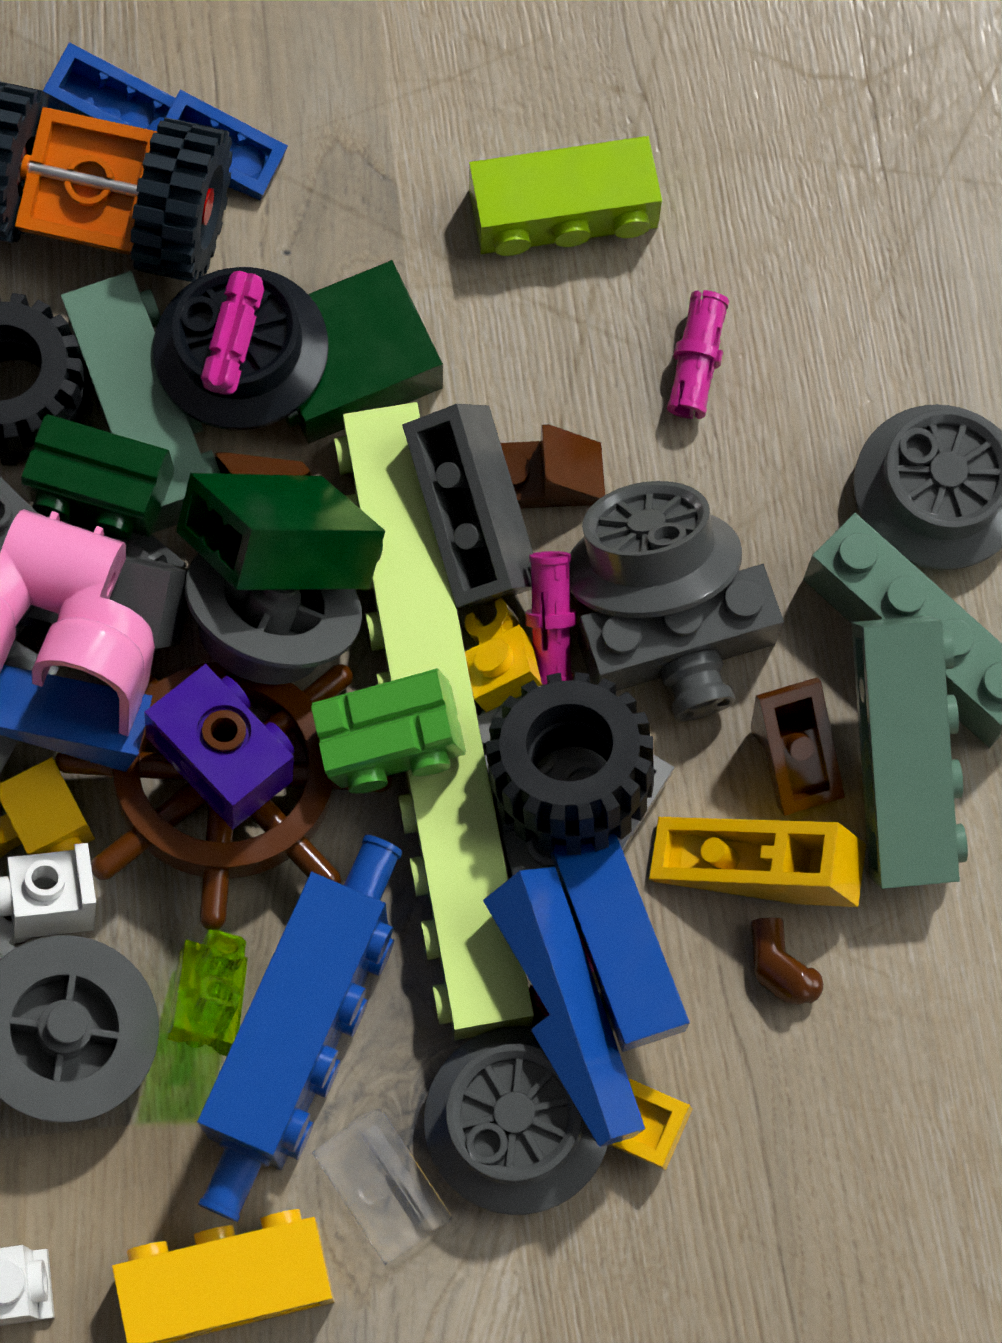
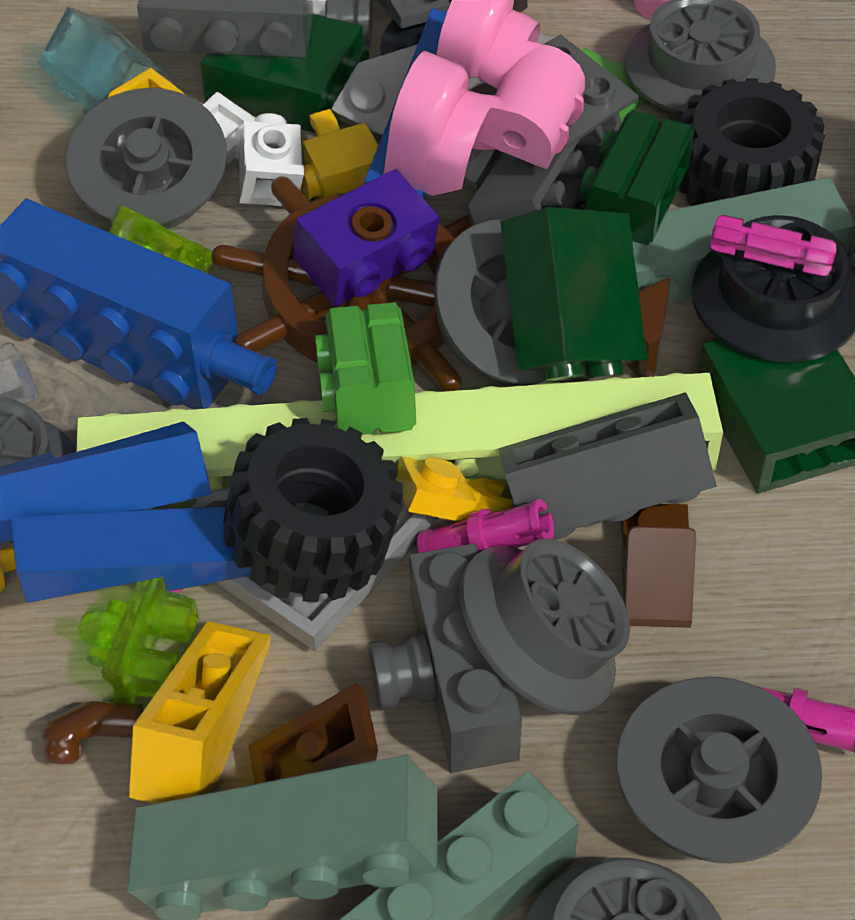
camera: 100 degrees right, 20 degrees down
(720, 932) = (126, 638): none -> clear neon green hips
(774, 409) = (719, 770): none -> dark grey wheel

